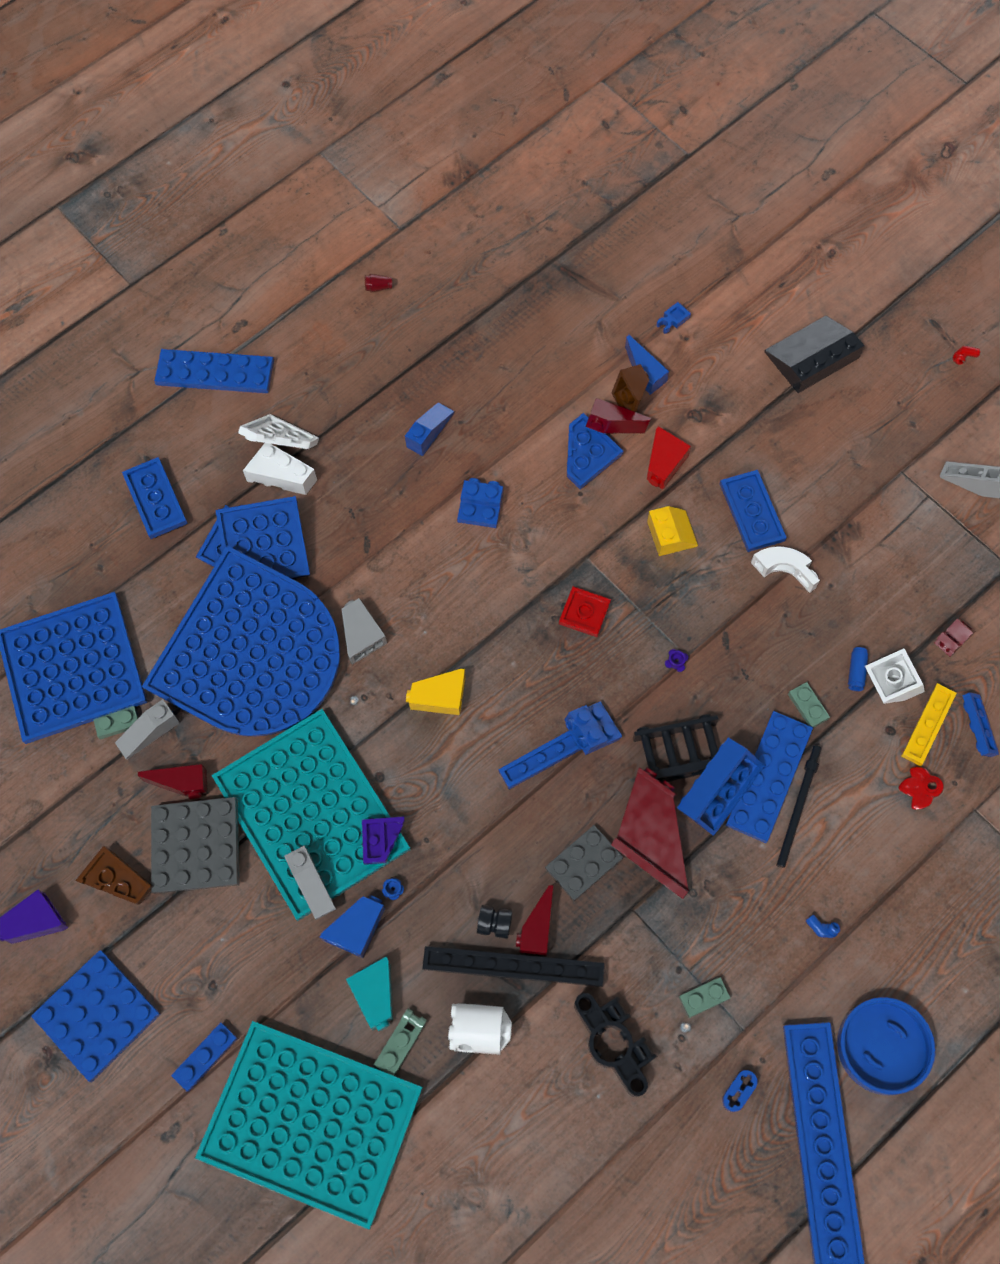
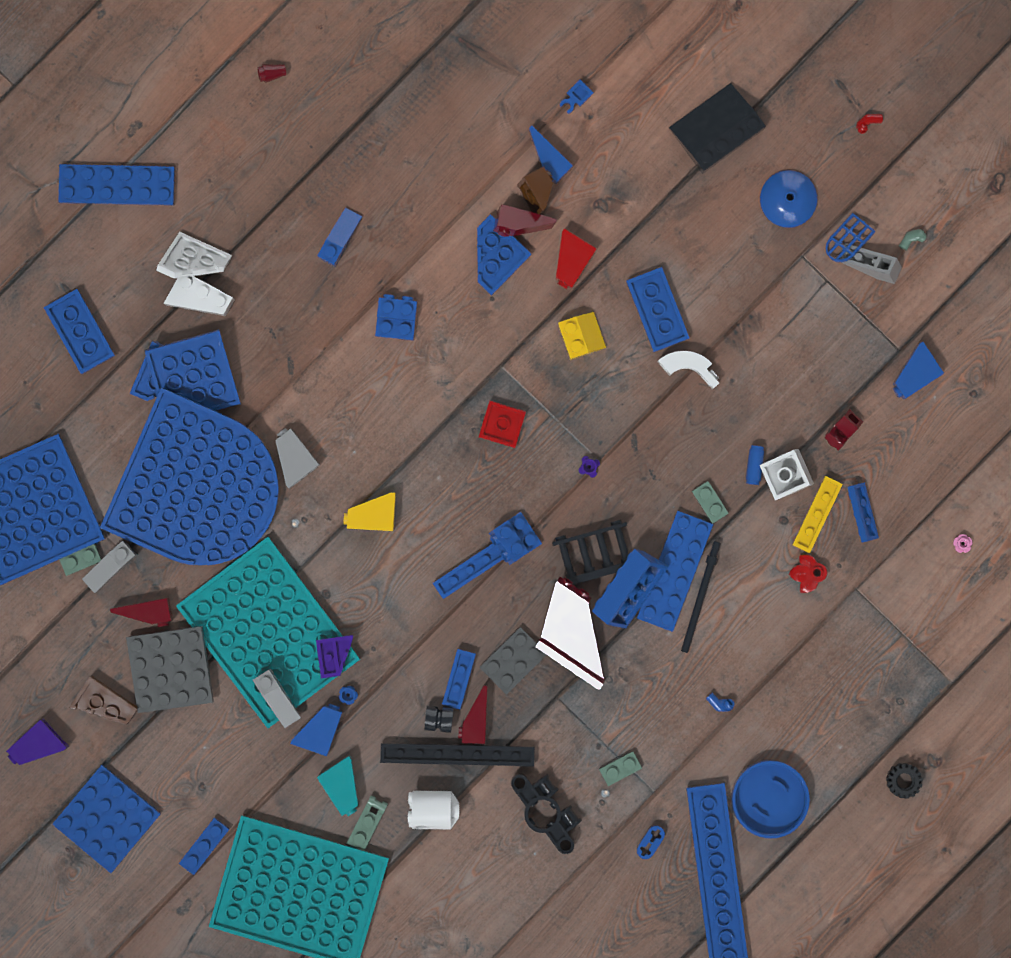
camera: 10 degrees left, 20 degrees up
(520, 878) = (458, 679): none -> blue plate
(882, 426) = (777, 206): none -> blue dish
(952, 449) = (856, 237): none -> blue window

